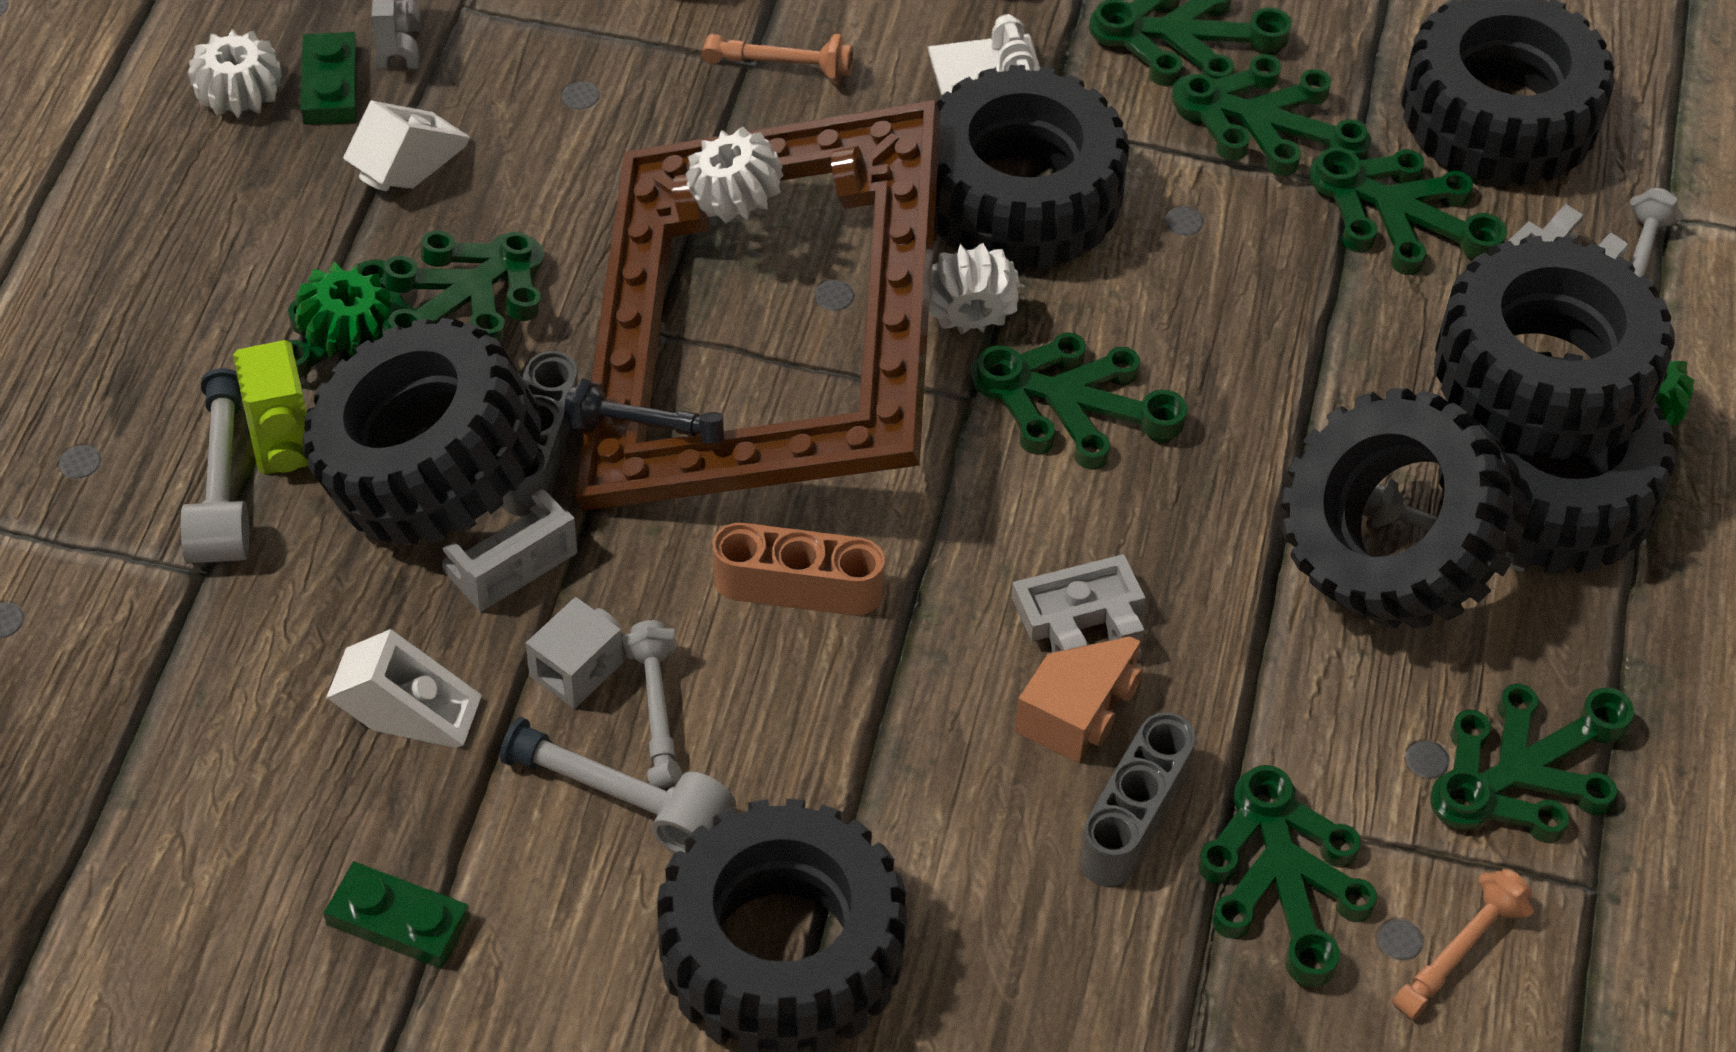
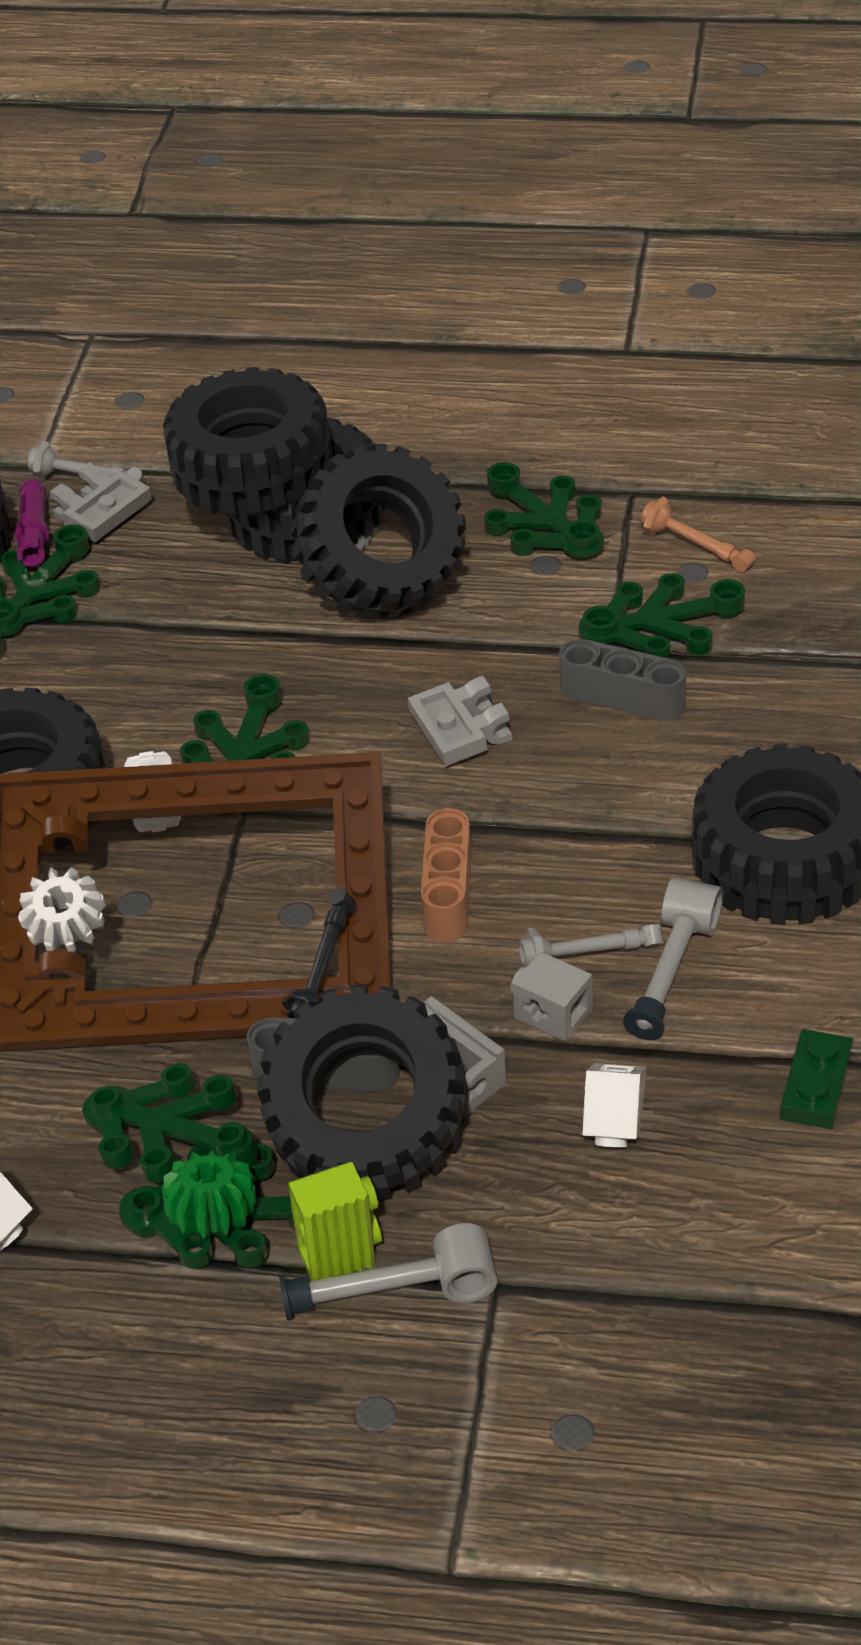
camera: 90 degrees left, 10 degrees down
(1075, 693) = (541, 714): nougat slope -> none
(1499, 193) = (31, 529): none -> magenta pin

